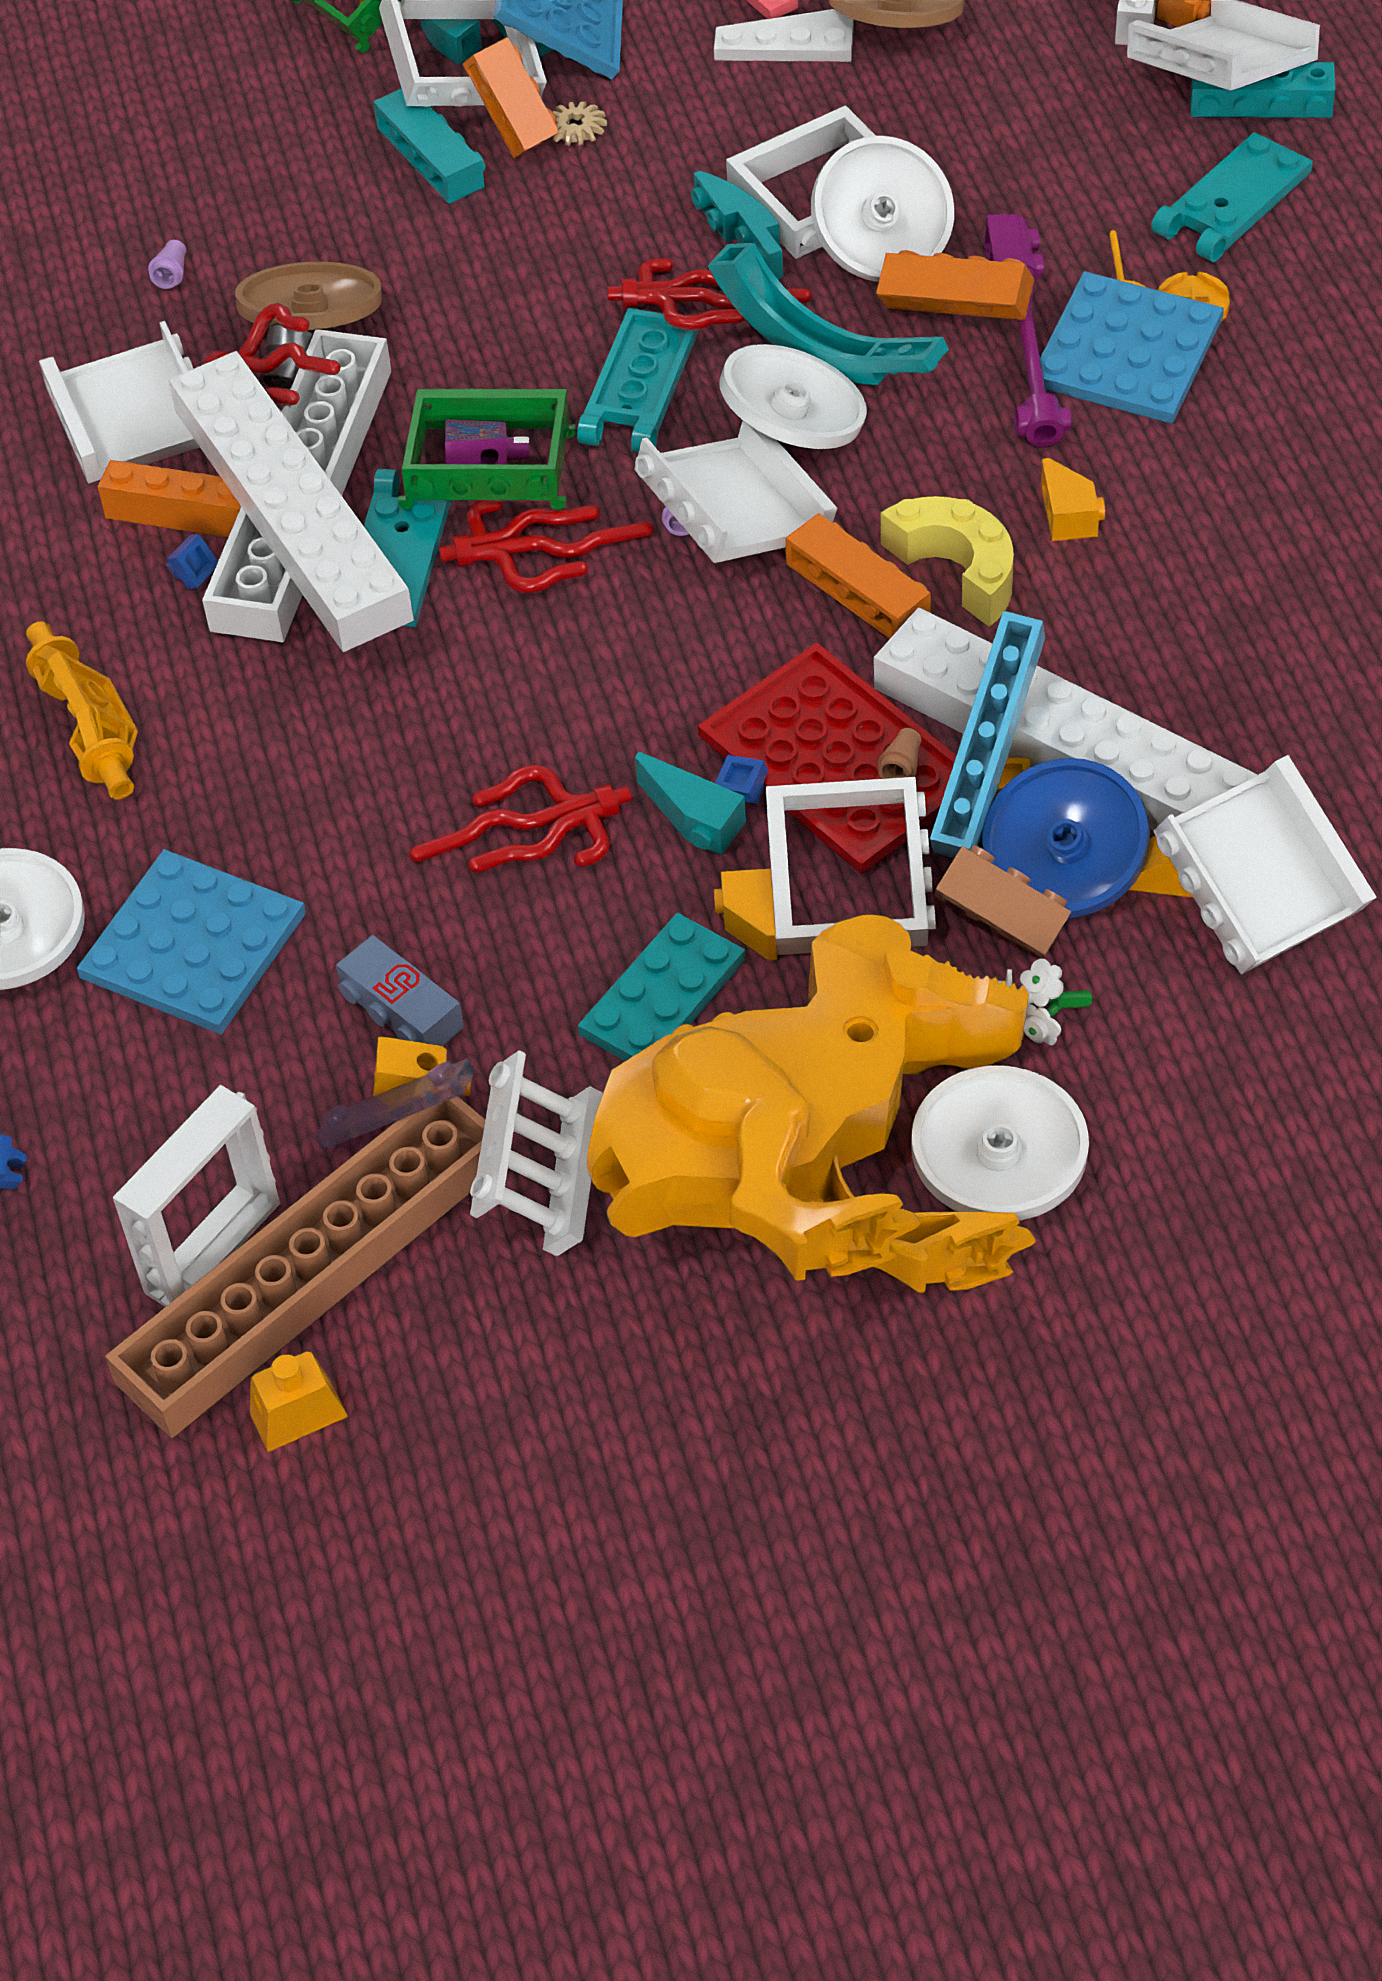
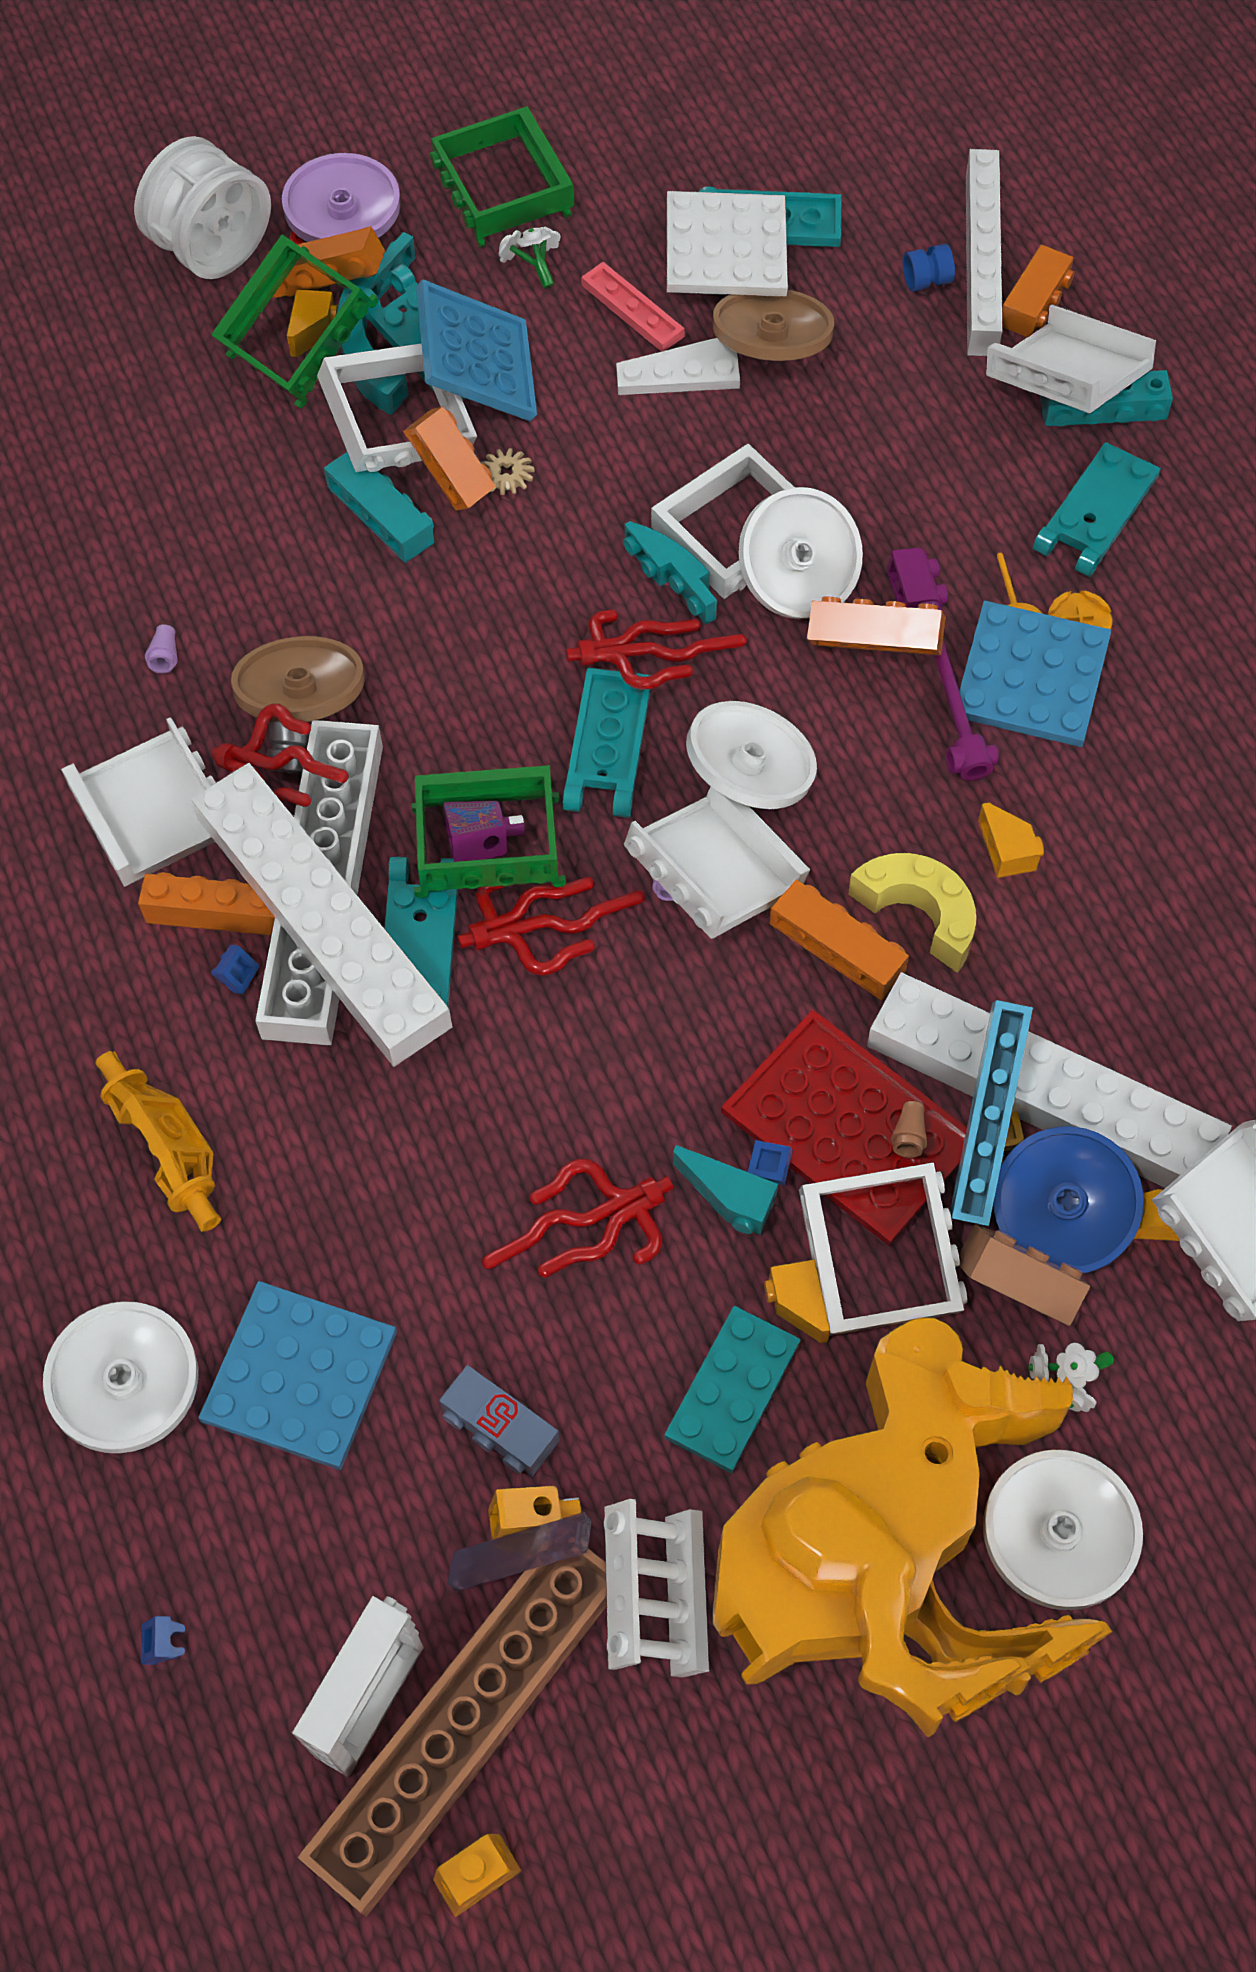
camera: 10 degrees left, 10 degrees up
(788, 323) = (741, 680): teal arch -> none

